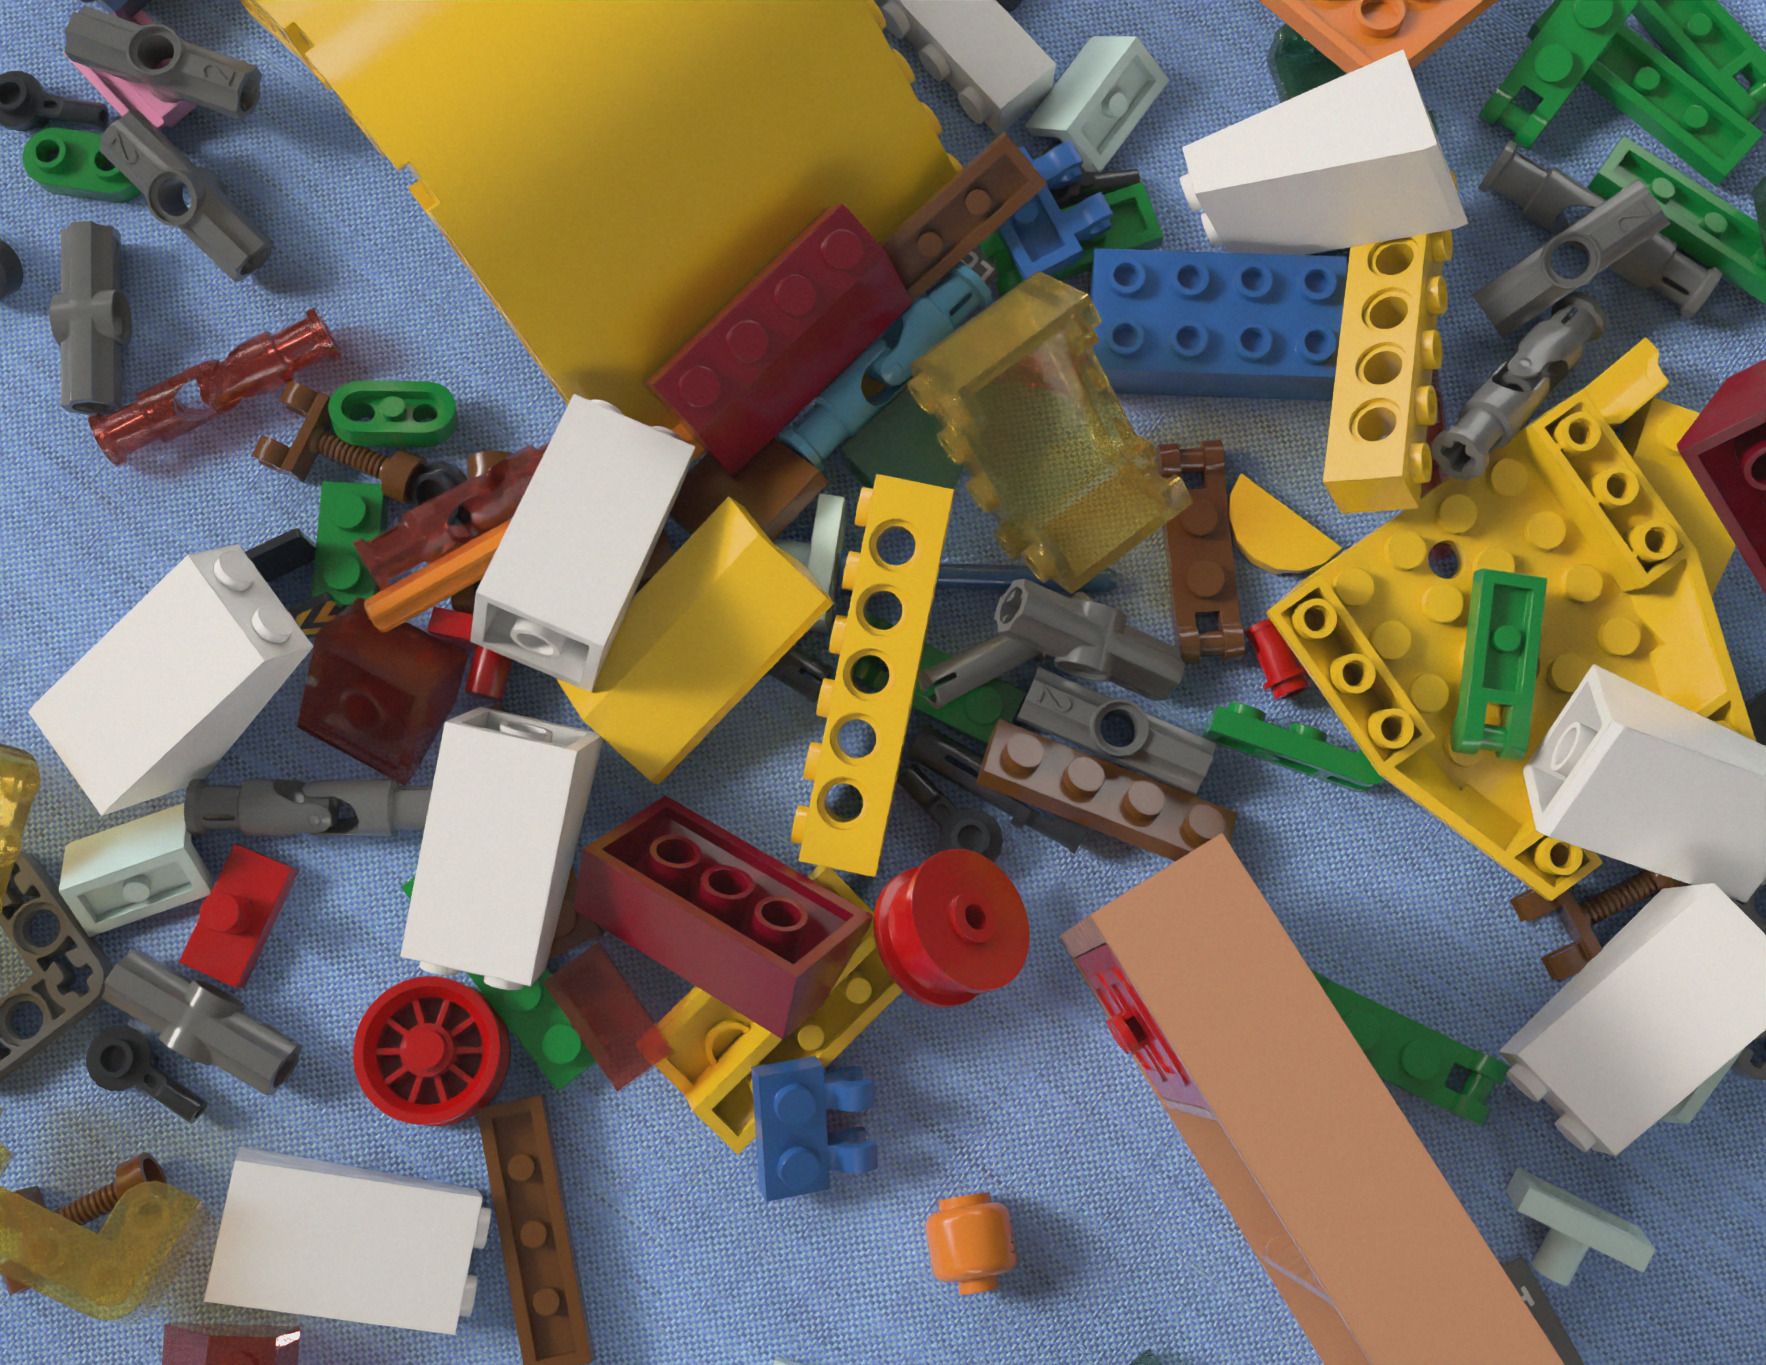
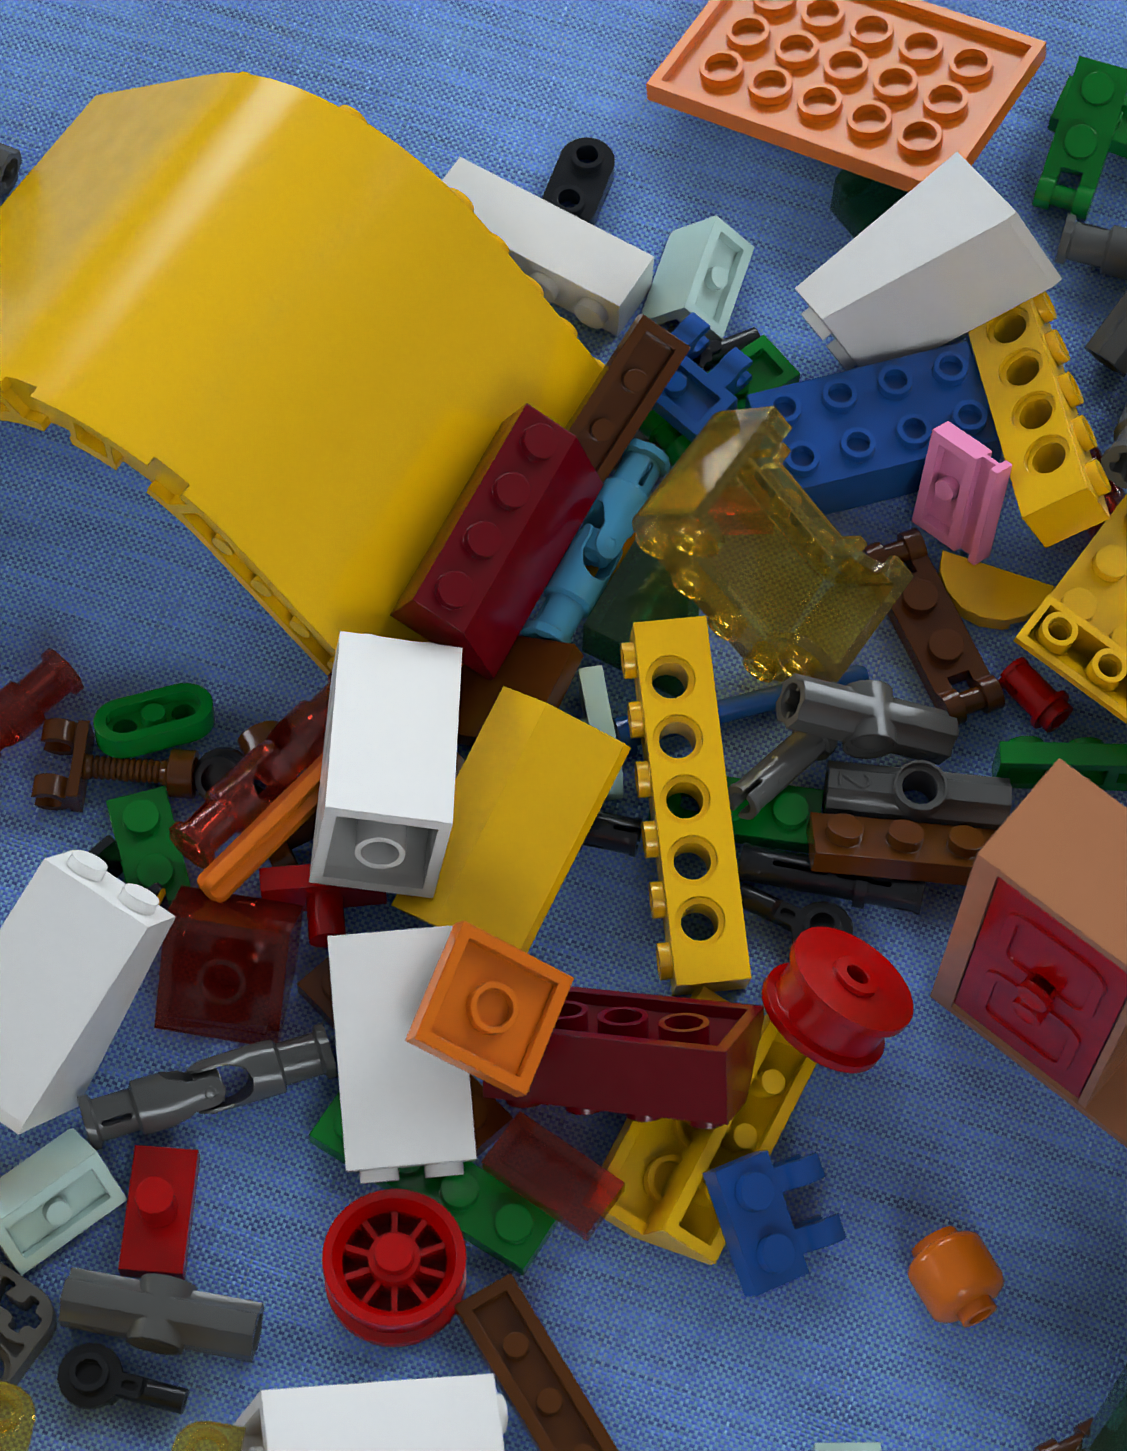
camera: 25 degrees left, 15 degrees down
(580, 850) = (489, 1009): none -> orange plate
(1277, 422) = (961, 492): none -> bright pink plate

